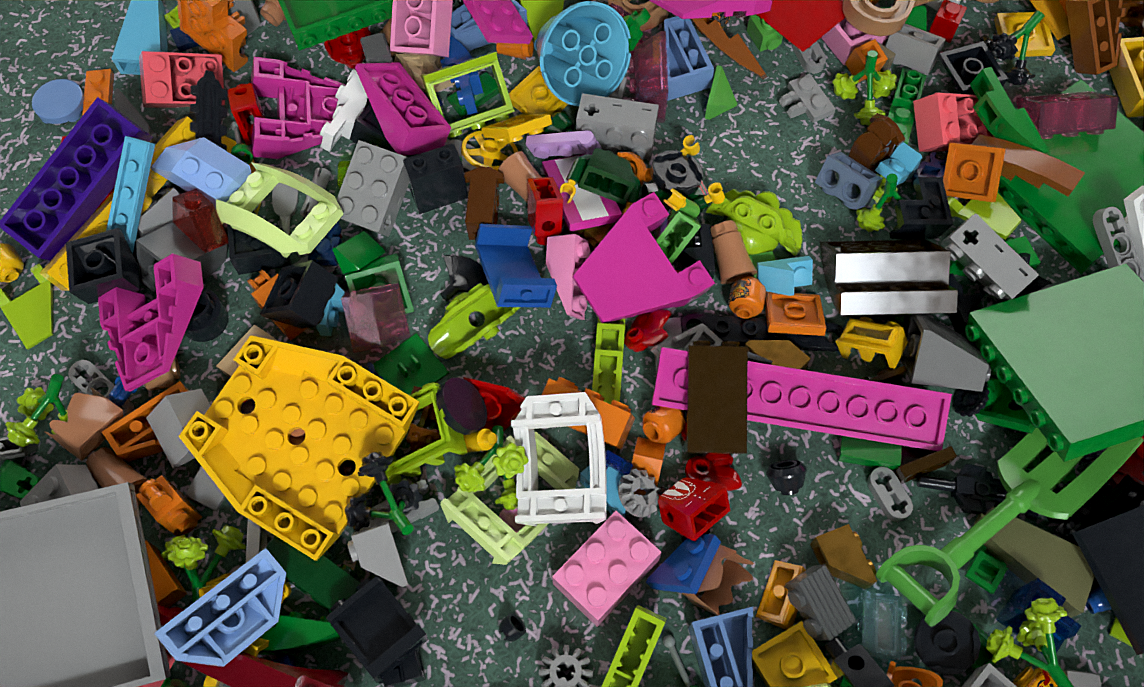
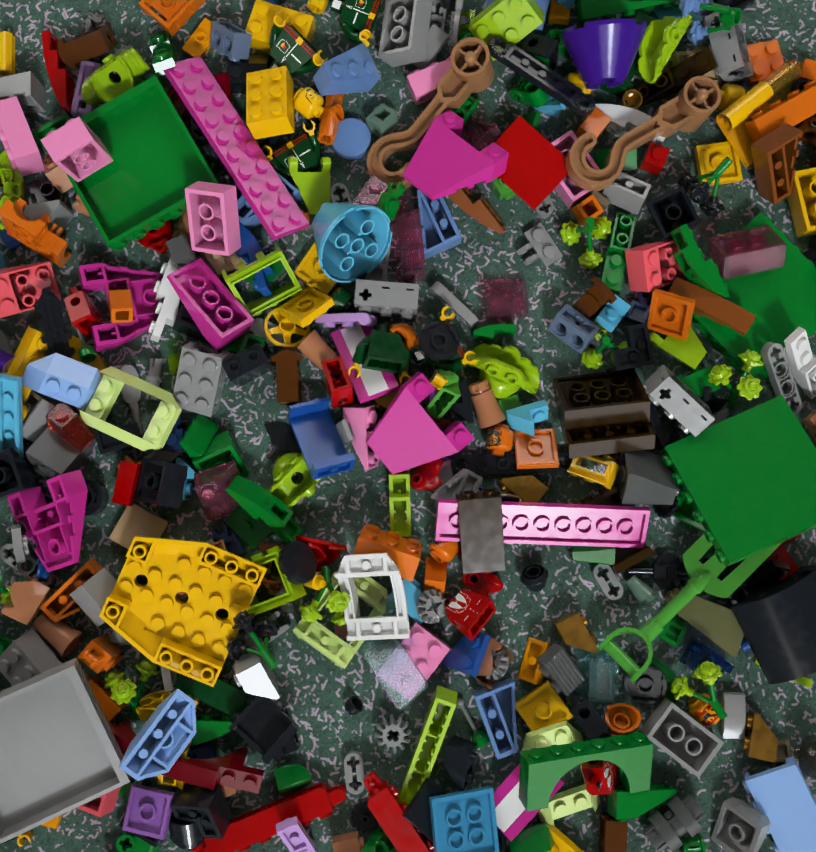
camera: 10 degrees left, 20 degrees up
(97, 347) = (20, 543): none -> light grey wing
(254, 295) = (126, 483): none -> red slope
(293, 102) = (120, 306): none -> orange brick
(426, 336) = (263, 504): none -> green slope
(546, 261) = (345, 432): none -> light grey slope
(578, 564) = (394, 670): none -> clear light blue piece
(617, 463) = (413, 591): clear blue tile -> none
(708, 155) = (457, 307): none -> light grey beam
(721, 96) = (469, 252): bright green slope -> none
(735, 582) = (501, 663): none -> light grey gear
(753, 176) = (487, 332): none -> green slope
(763, 148) = (505, 298): none -> clear pink slope
(938, 510) = (640, 590): none -> sand green cone
(1078, 249) = (747, 386): none -> lime plant

